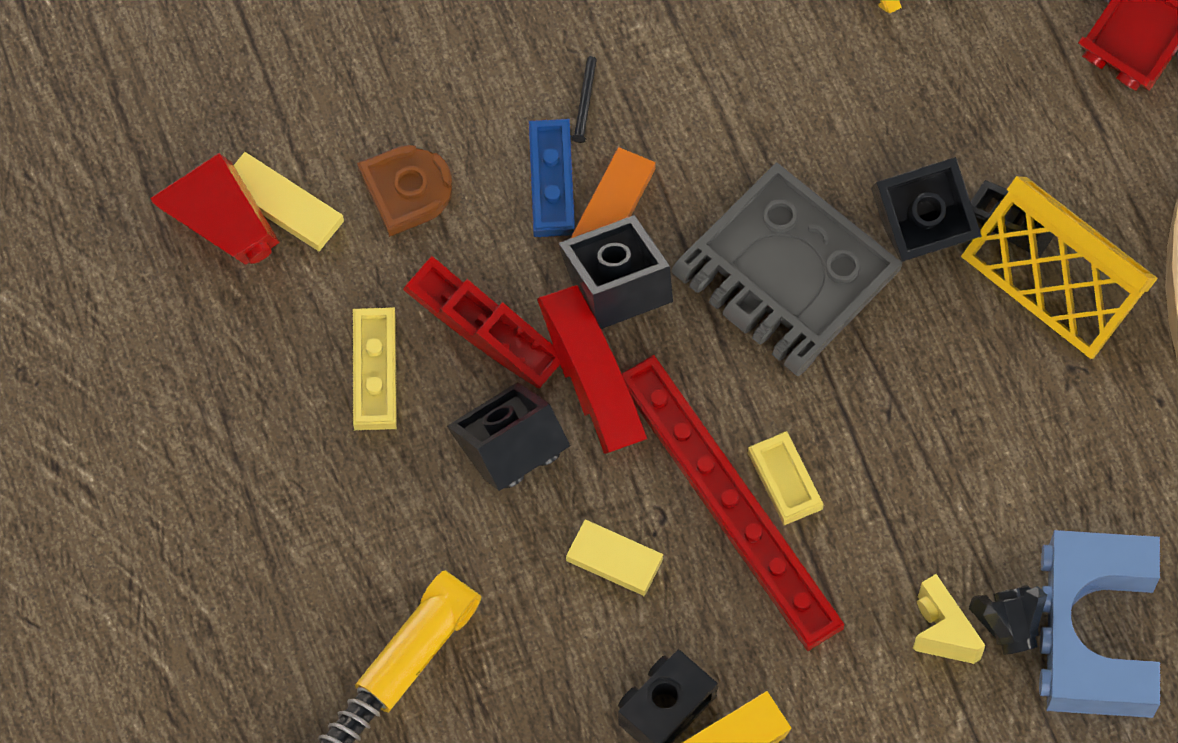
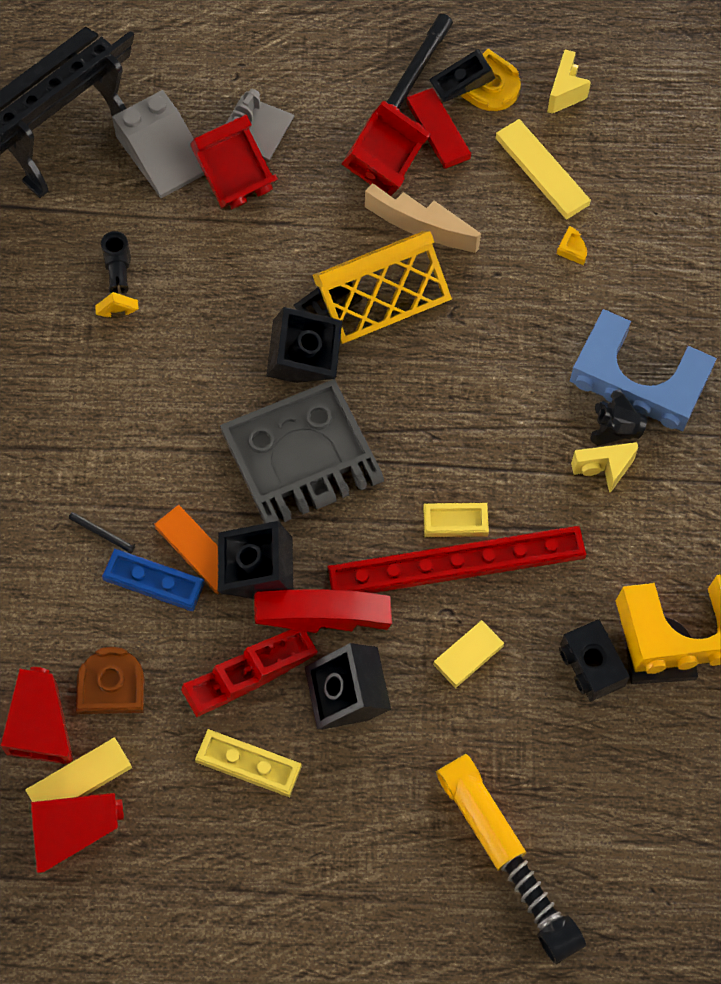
camera: 70 degrees left, 0 degrees up
(330, 127) = (37, 720): none -> red slope

